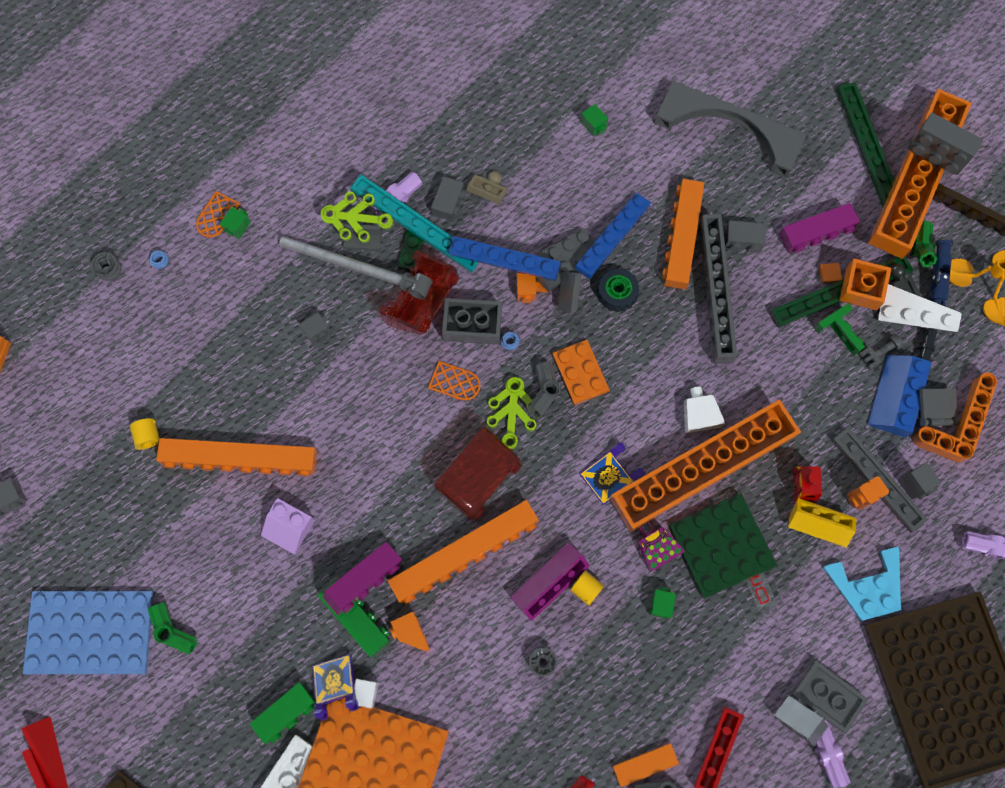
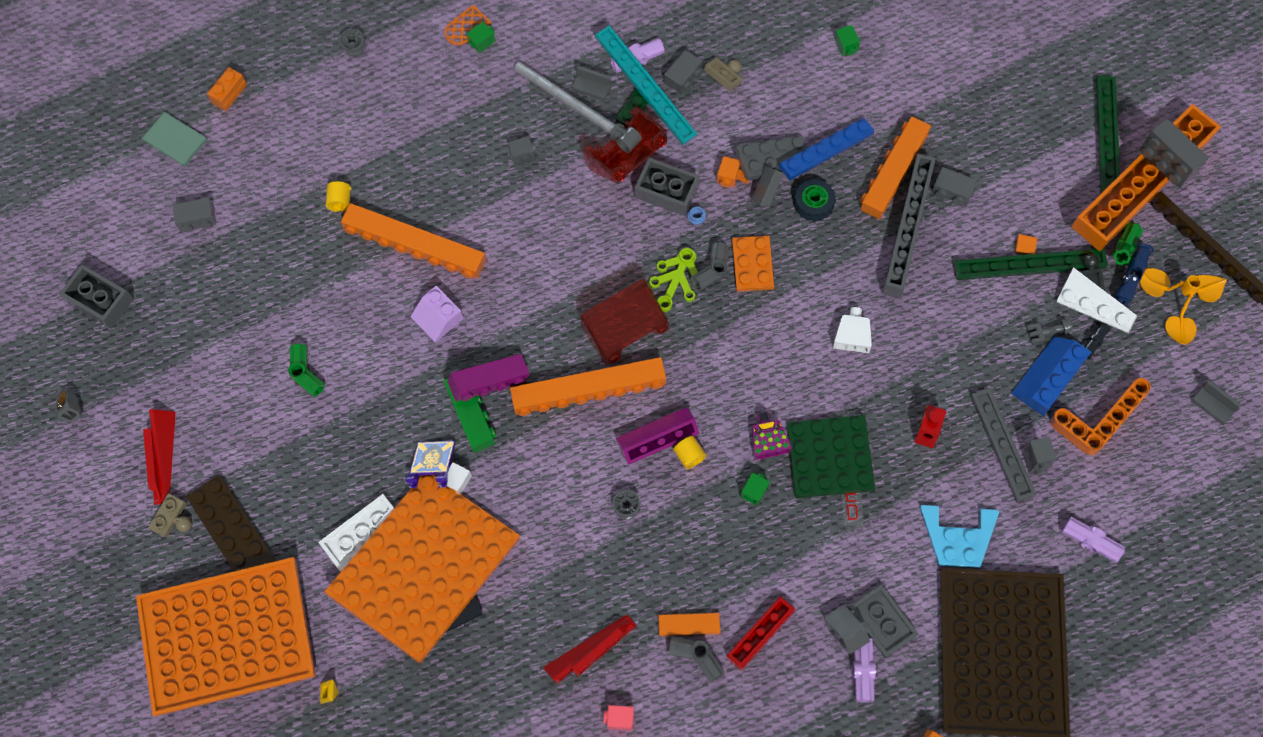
camera: 20 degrees right, 5 degrees down
(88, 632) = (232, 351): medium blue plate -> none
(159, 254) = (401, 45): medium blue plate -> none
(283, 713) = (378, 472): green brick -> none
(354, 217) = (590, 61): lime plant -> none
(409, 631) = (514, 439): orange slope -> none
(459, 383) = (635, 240): orange window -> none
(505, 258) = (716, 138): blue plate -> none
(608, 475) = (746, 364): flag -> none
(704, 465) = (839, 378): orange brick -> none
(777, 139) = (940, 49): dark grey arch -> none
(819, 227) = (1029, 200): magenta brick -> none
(822, 522) = (932, 464): yellow brick -> none
(842, 329) = (1017, 297): green bracket -> none
(865, 284) = (1051, 261): orange brick -> none
(867, 493) = (984, 450): orange brick -> none
(938, 407) = (1084, 395): dark grey piece -> none

